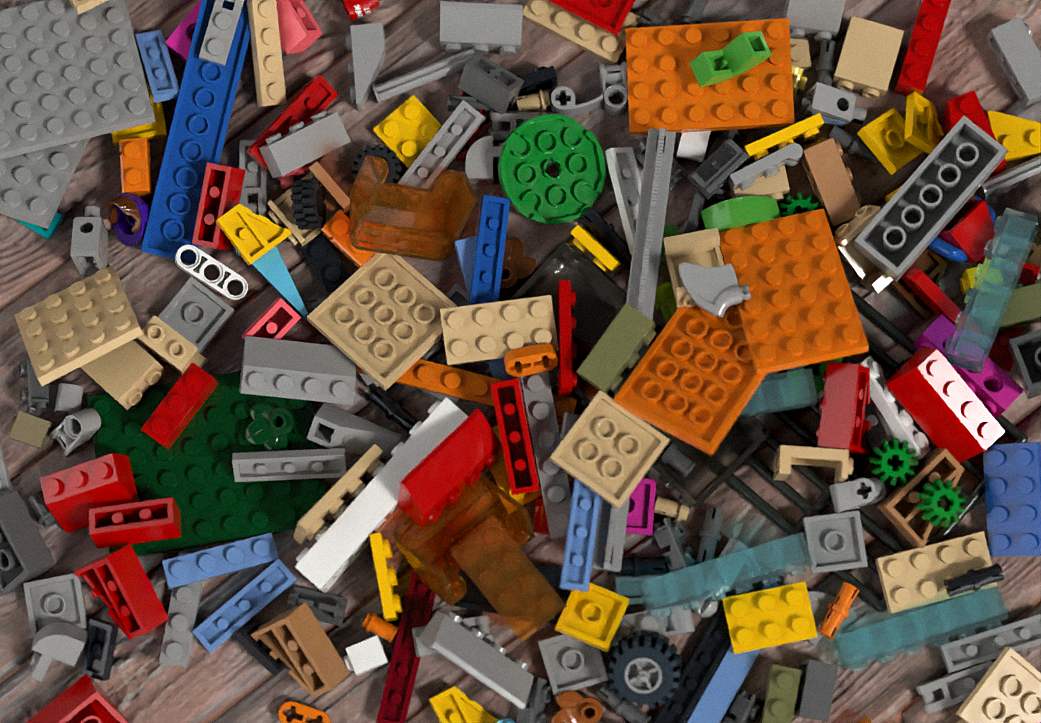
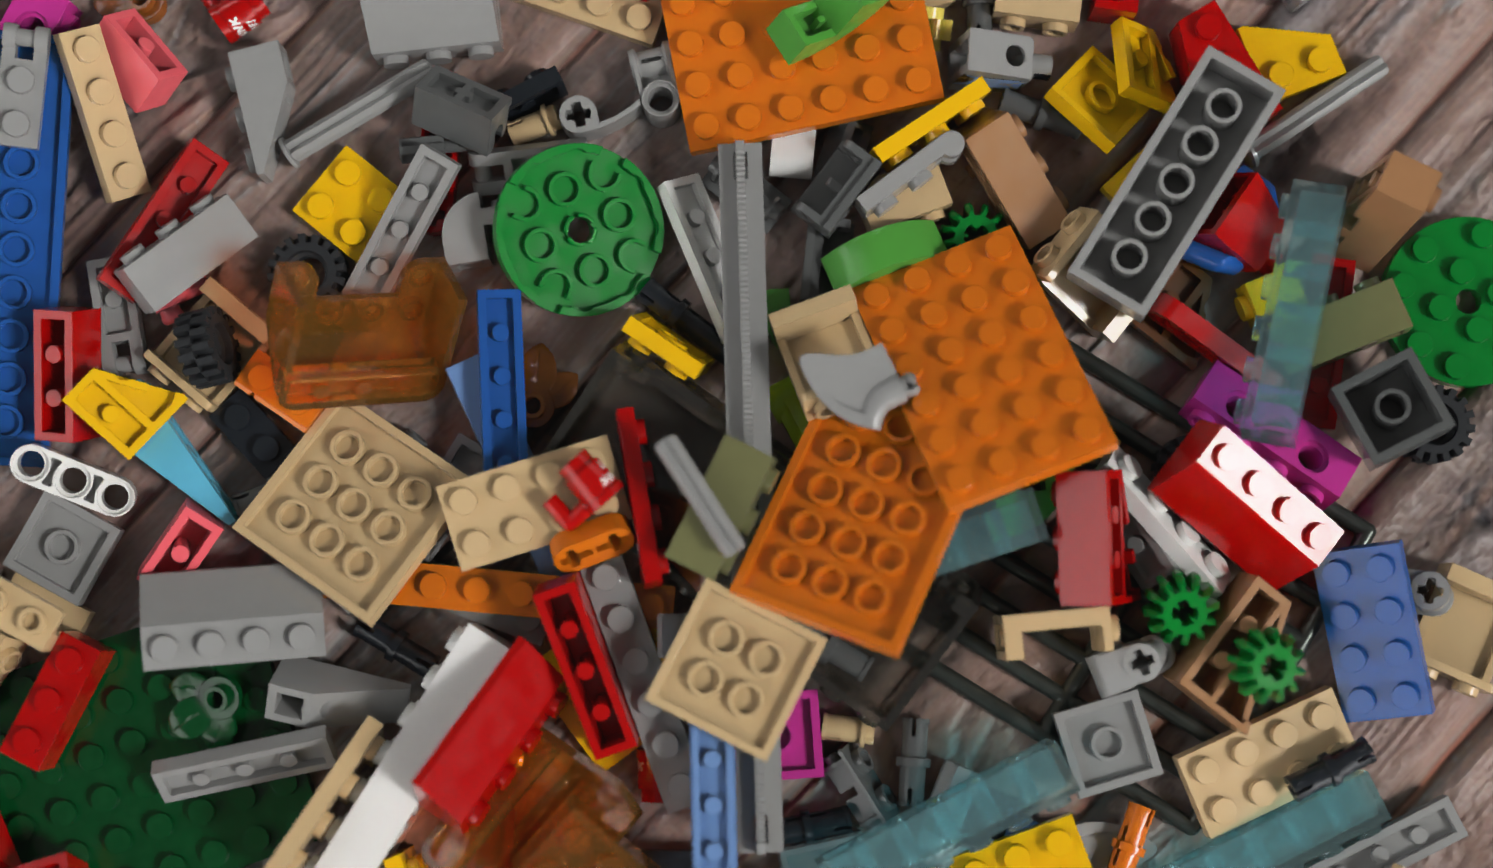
camera: 10 degrees left, 5 degrees up
(537, 322) = (592, 486): none -> red piece
(604, 337) = (699, 496): none -> light grey axle

